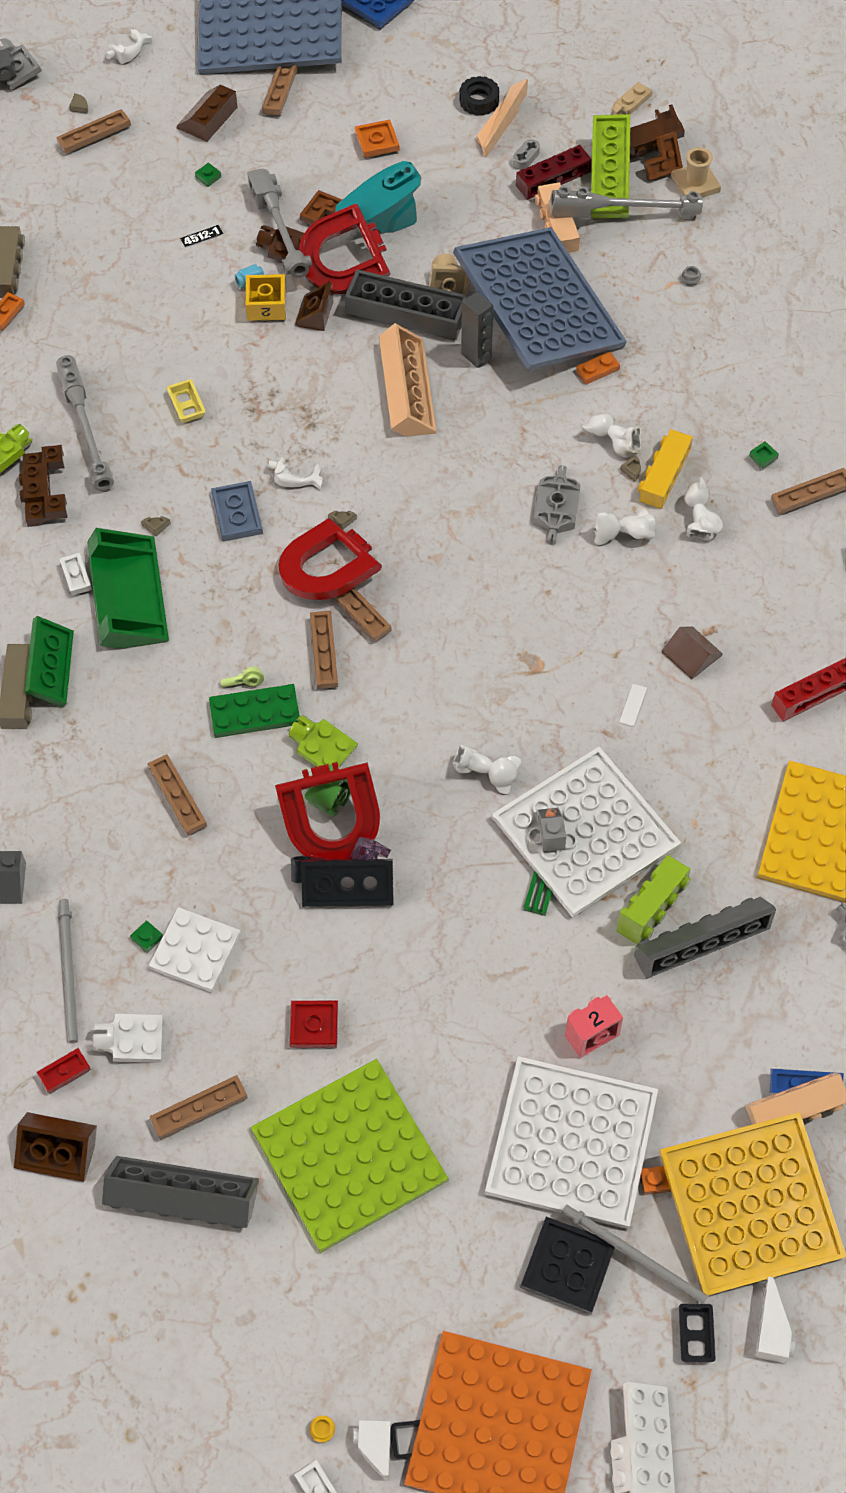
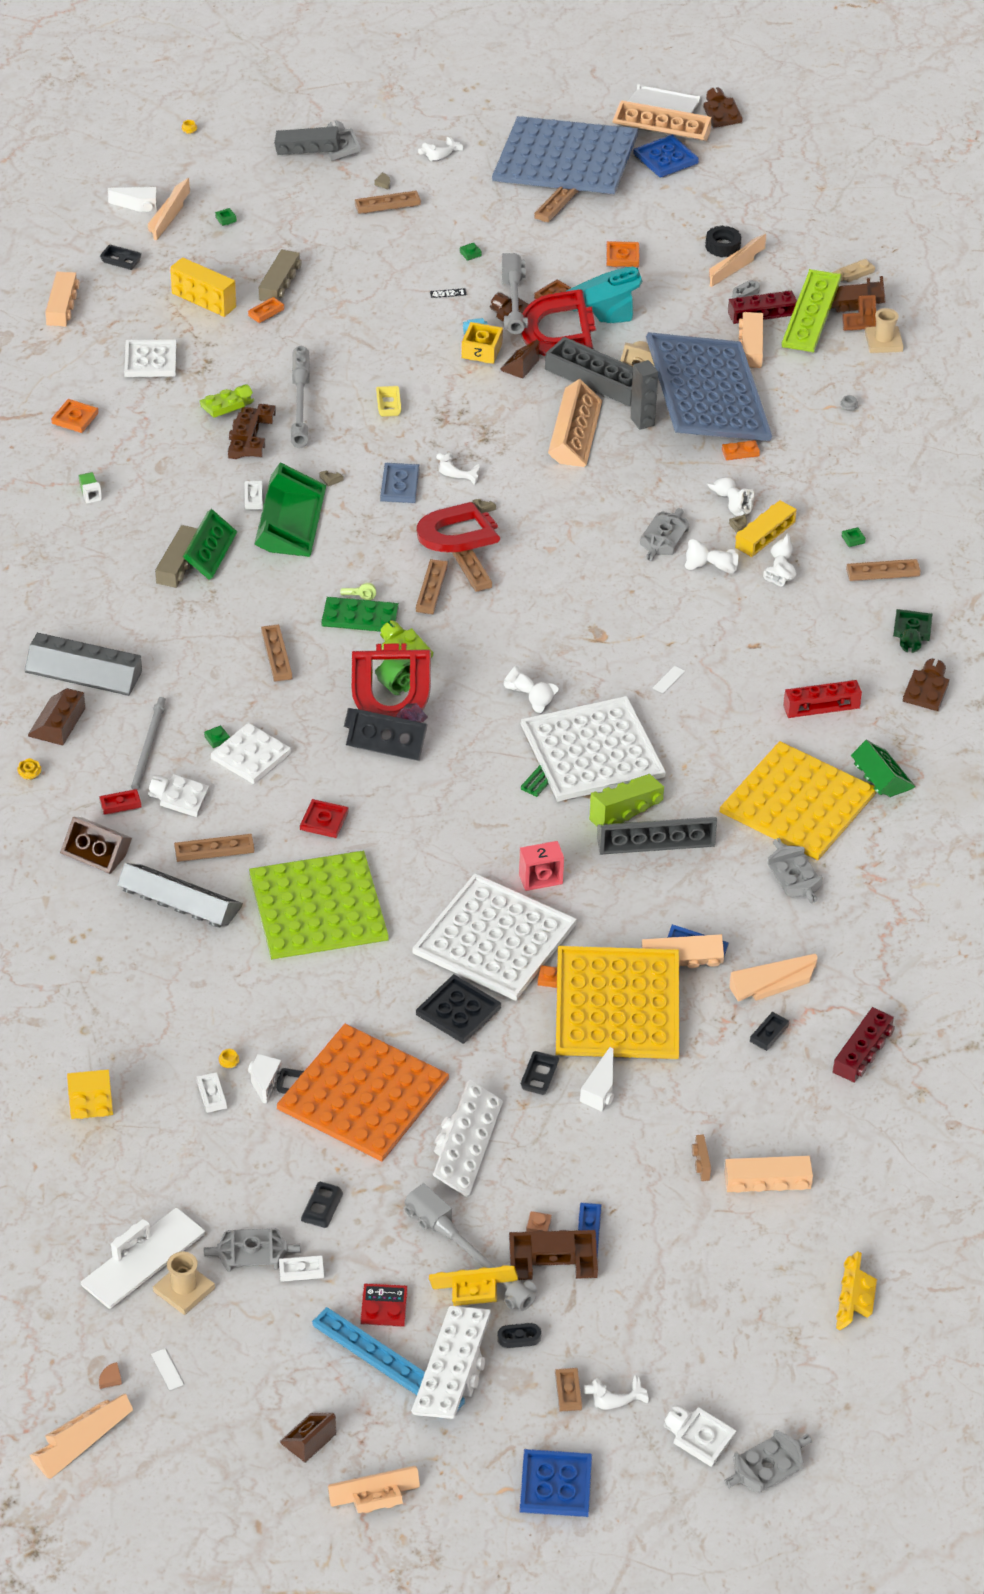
camera: 15 degrees right, 15 degrees down
(209, 113) = (490, 208): reddish brown slope -> none
(551, 829) = (562, 738): light grey slope -> none
(580, 202) = (771, 327): light grey bar -> none
(627, 1249) = (478, 979): light grey bar -> none
(691, 651) = (731, 653): reddish brown slope -> none

